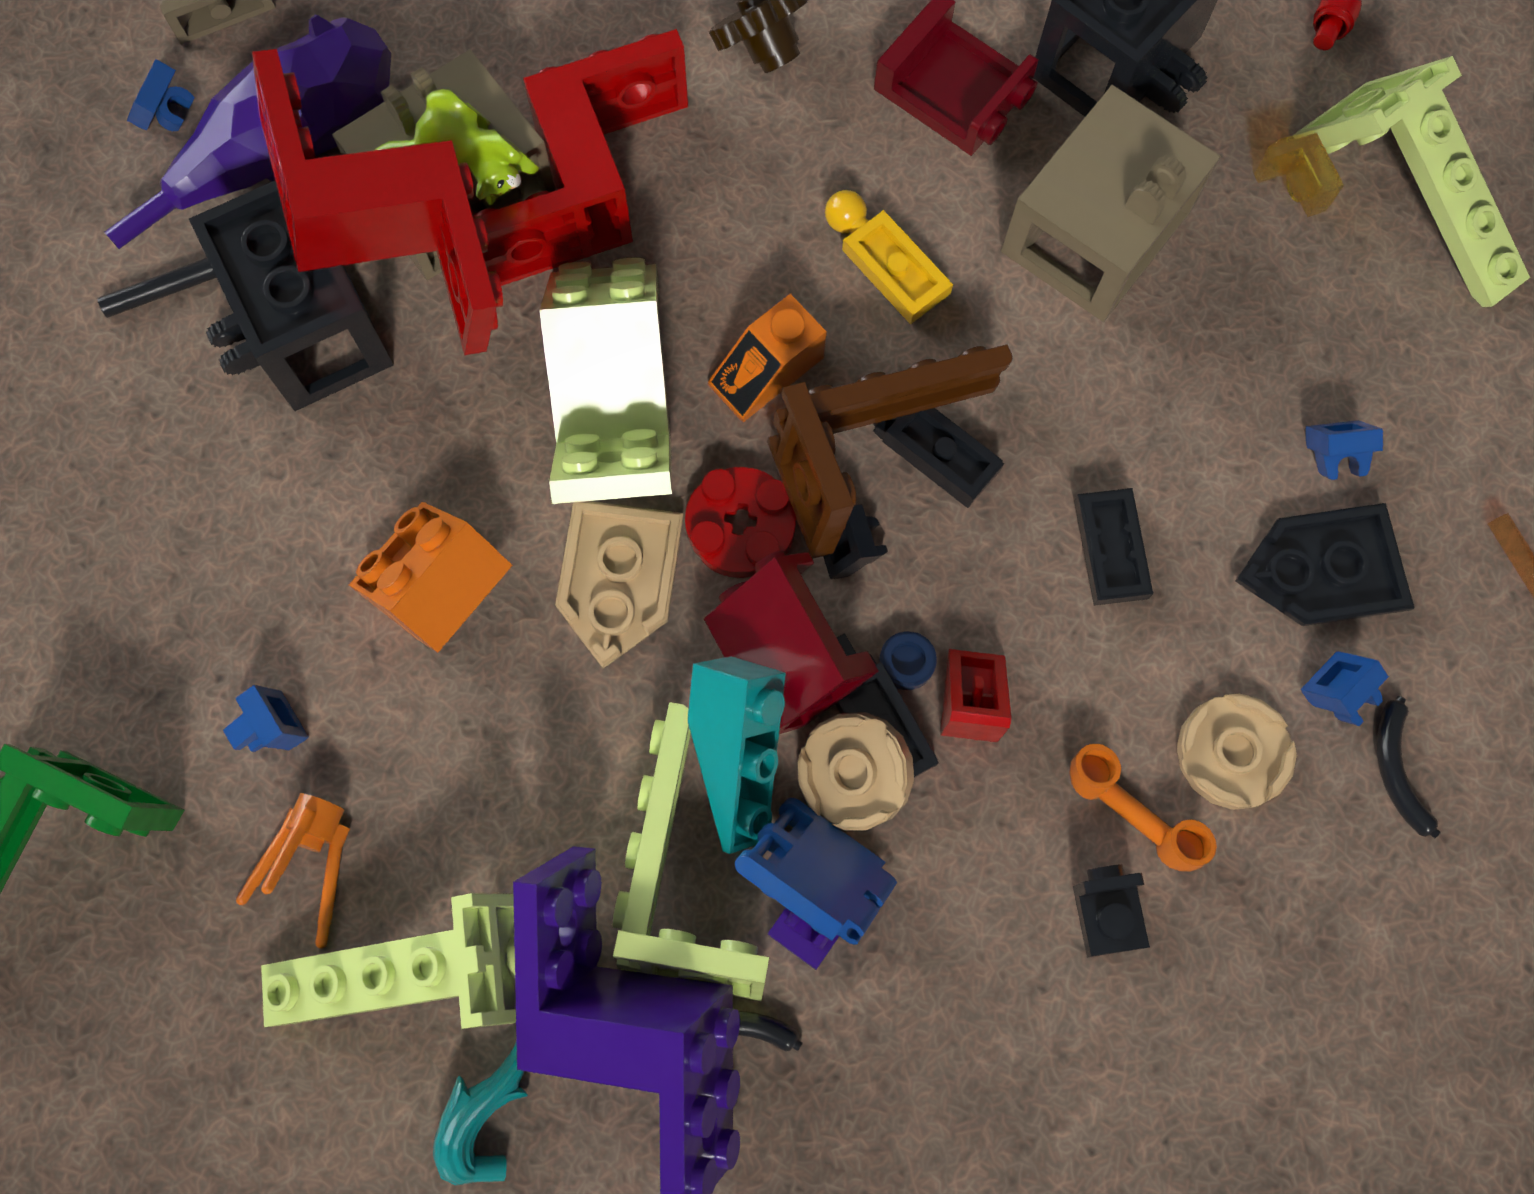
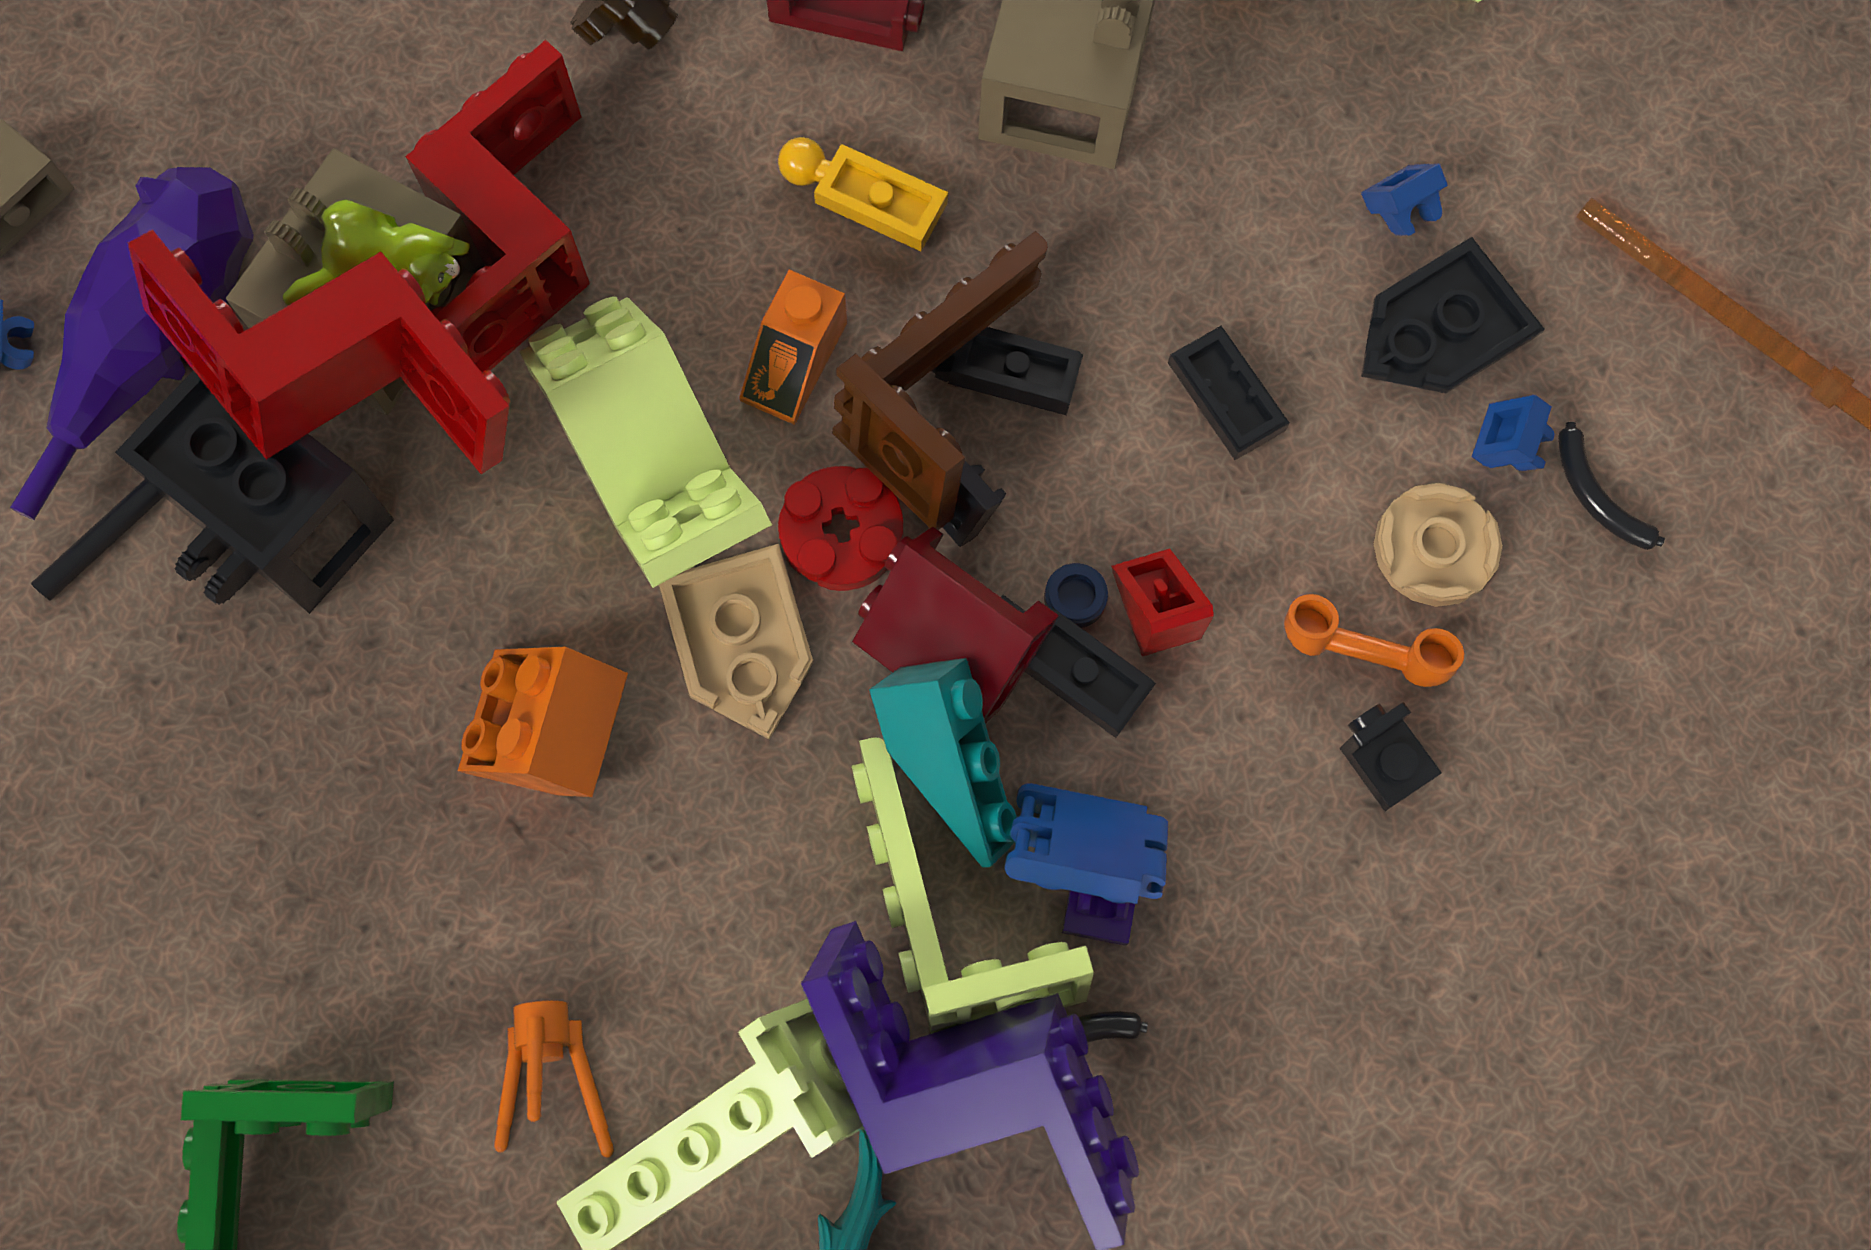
camera: 25 degrees left, 0 degrees up
(265, 721) = (440, 950): blue tile -> none
(855, 771) = (1077, 728): tan tile -> none

